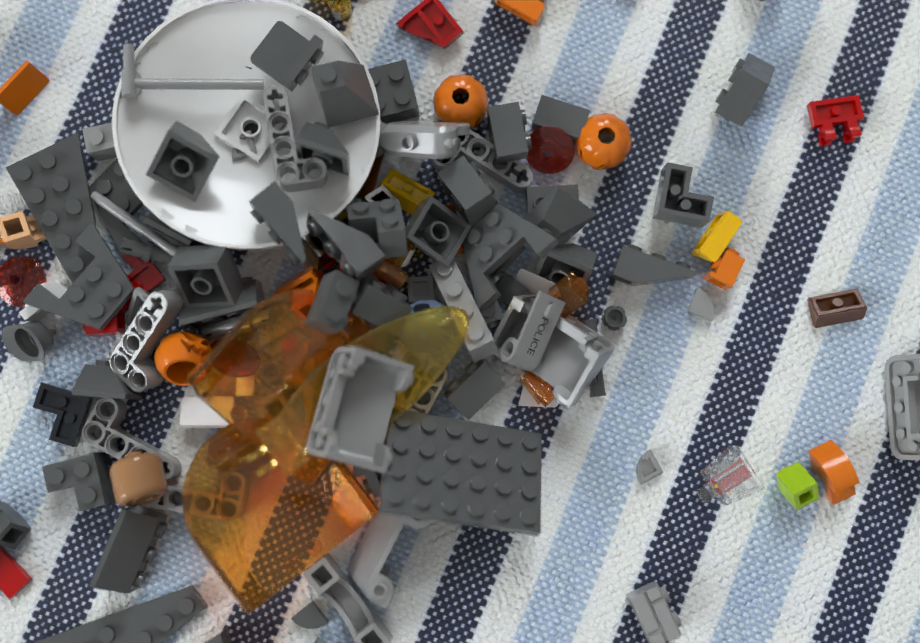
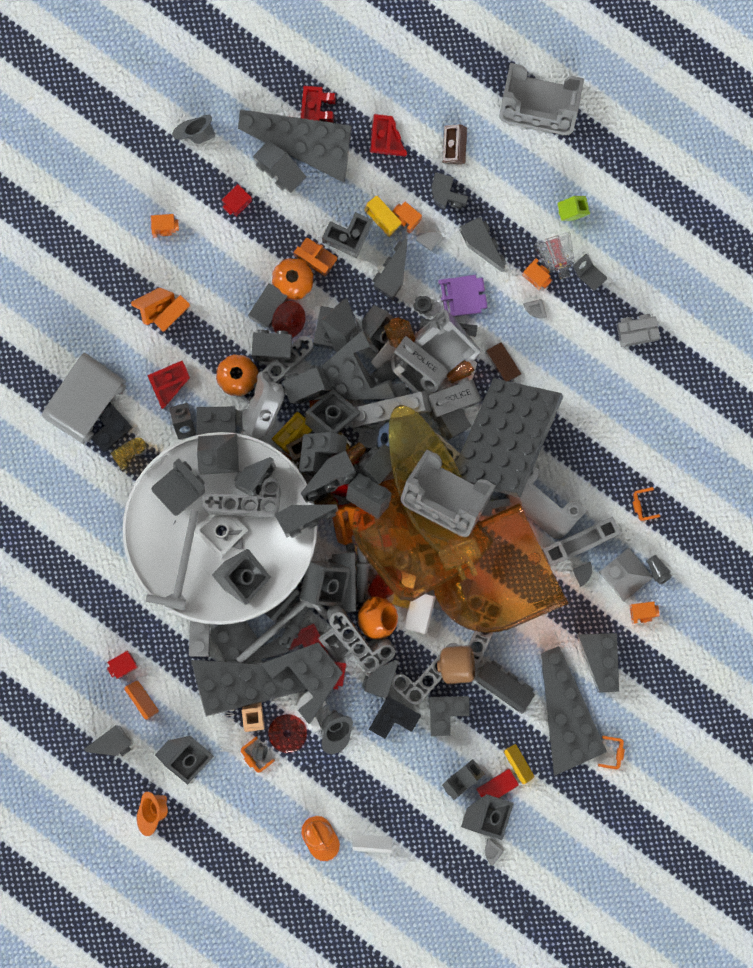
camera: 75 degrees left, 0 degrees up
(36, 591) = (519, 764): none -> yellow slope
(60, 54) = (122, 665): none -> red brick
(389, 48) = (181, 417): none -> dark grey bracket
(499, 388) = (455, 398): none -> light grey door
(565, 441) = (503, 362): none -> reddish brown slope
(640, 165) = (315, 256): none -> orange panel
(640, 368) = (463, 295): none -> medium lavender plate
(685, 47) = (236, 201): none -> red brick
(693, 459) = (537, 275): none -> orange brick
(713, 528) = (589, 273): none -> dark grey bracket
(717, 371) = (479, 241): none -> dark grey slope
(767, 307) = (441, 192): none -> dark grey brick
(789, 120) = (310, 141): none -> dark grey wing
(821, 216) = (385, 137): none -> red wing
(835, 470) = (570, 179): orange brick -> none

